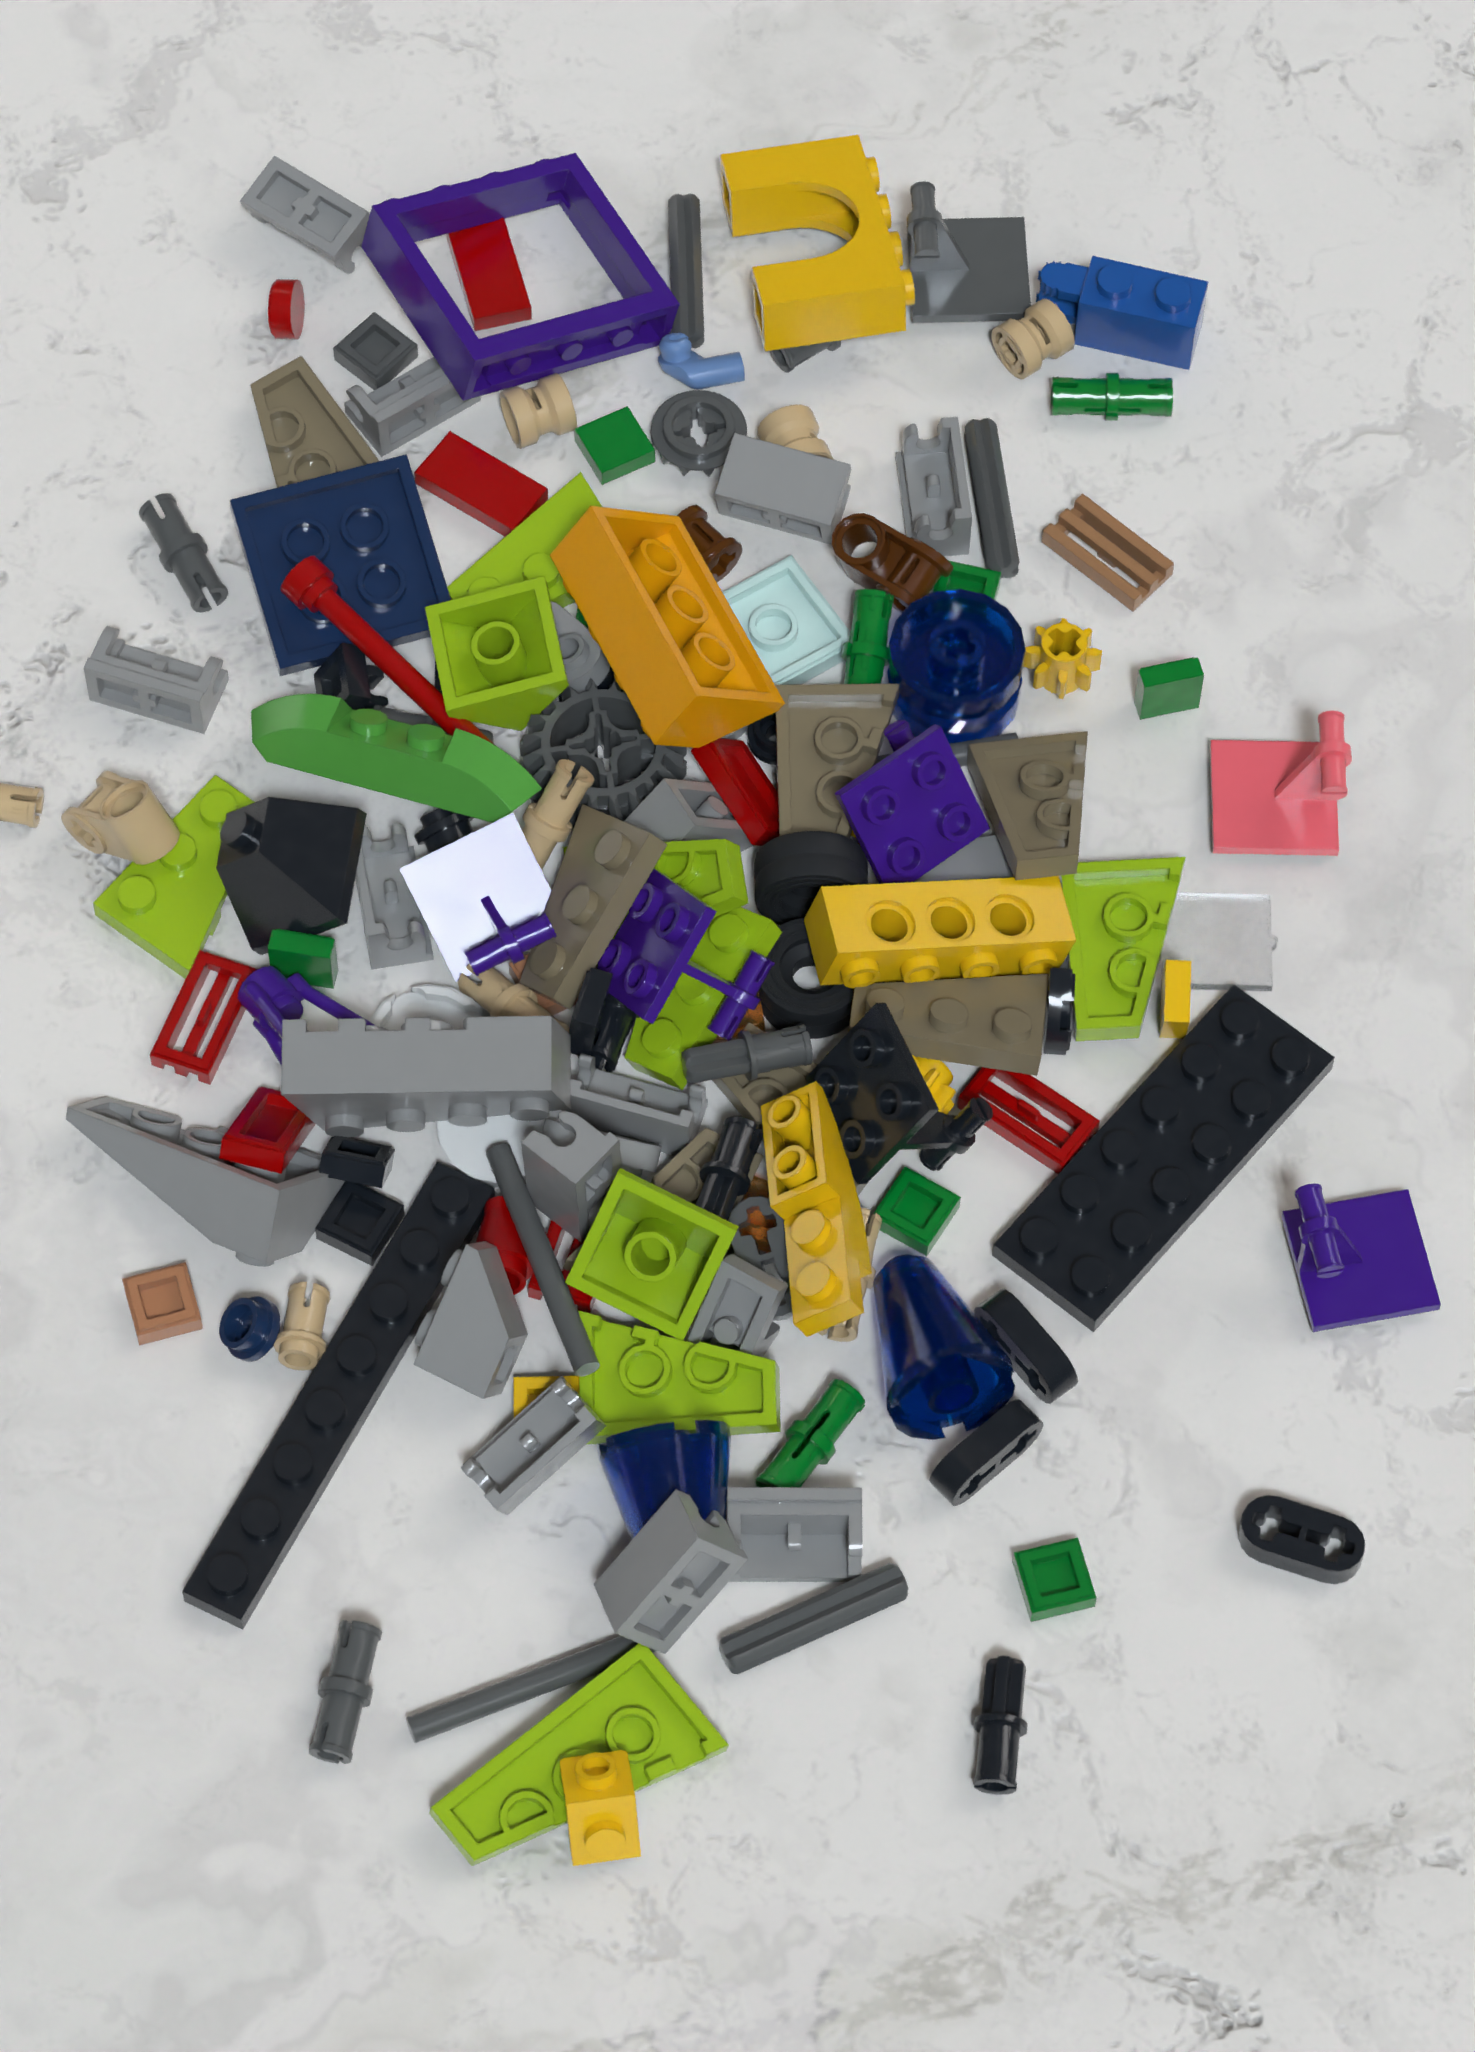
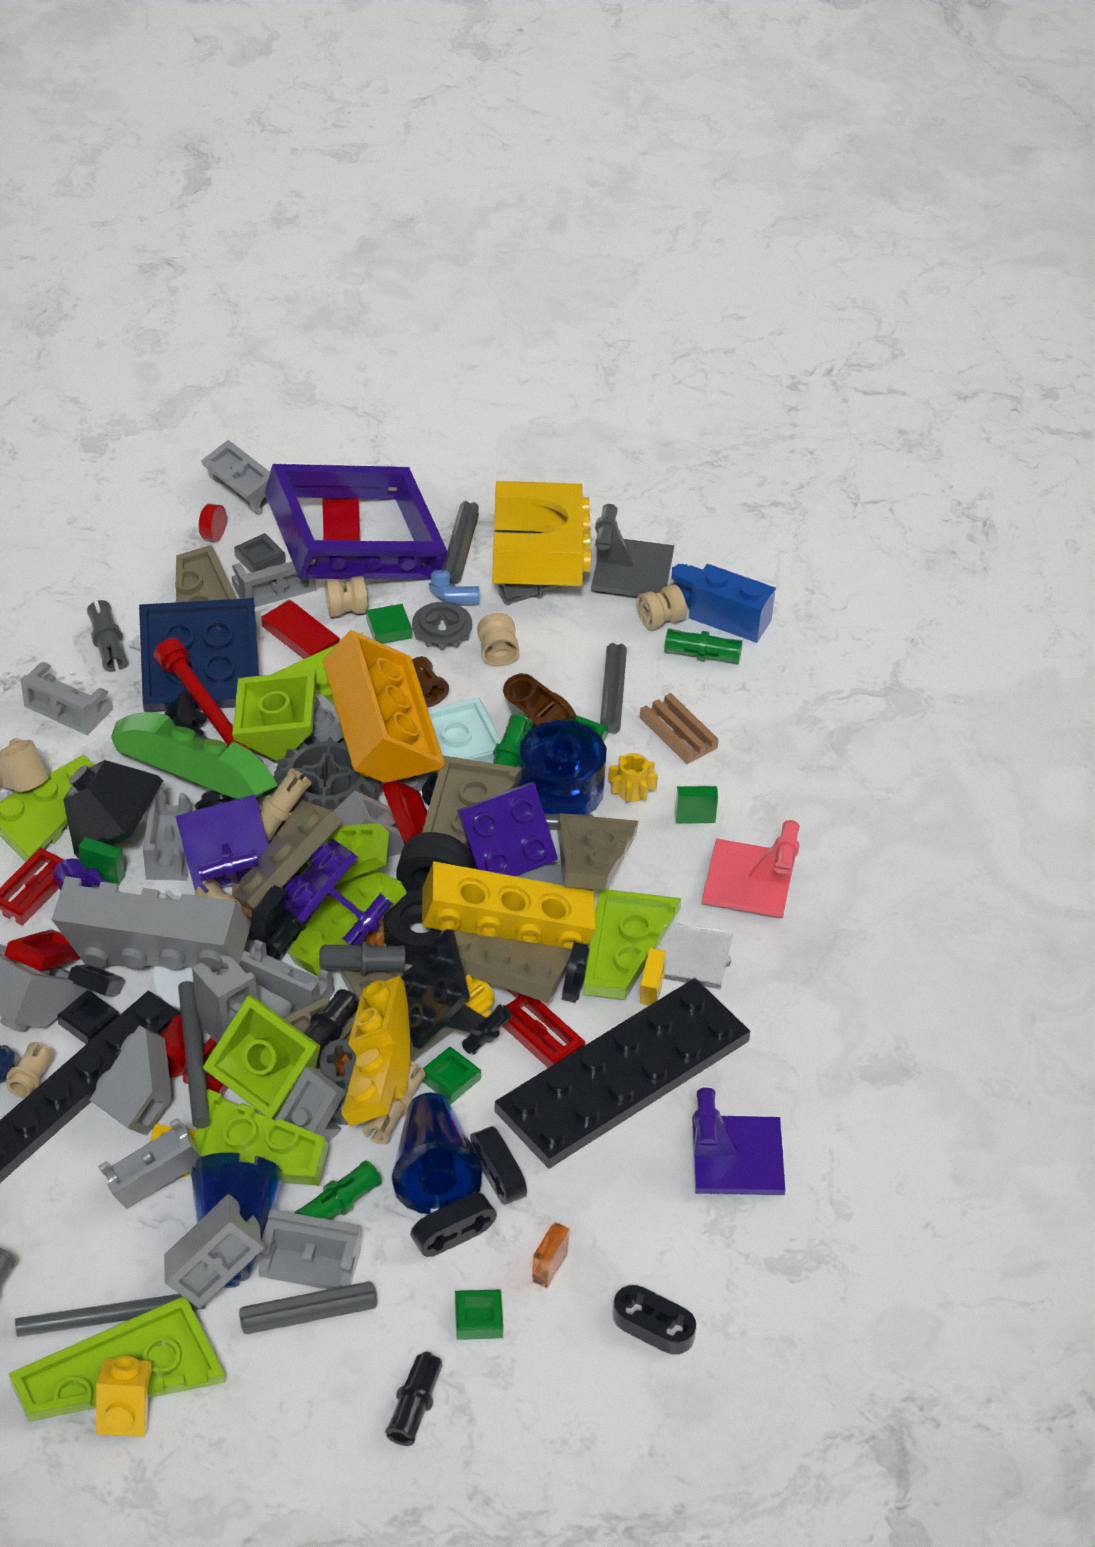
camera: 10 degrees right, 15 degrees down
(783, 488) = (481, 657): light grey hinge -> none
(935, 489) = (579, 674): light grey hinge -> none
(1135, 1472) = (550, 1254): none -> clear orange tile

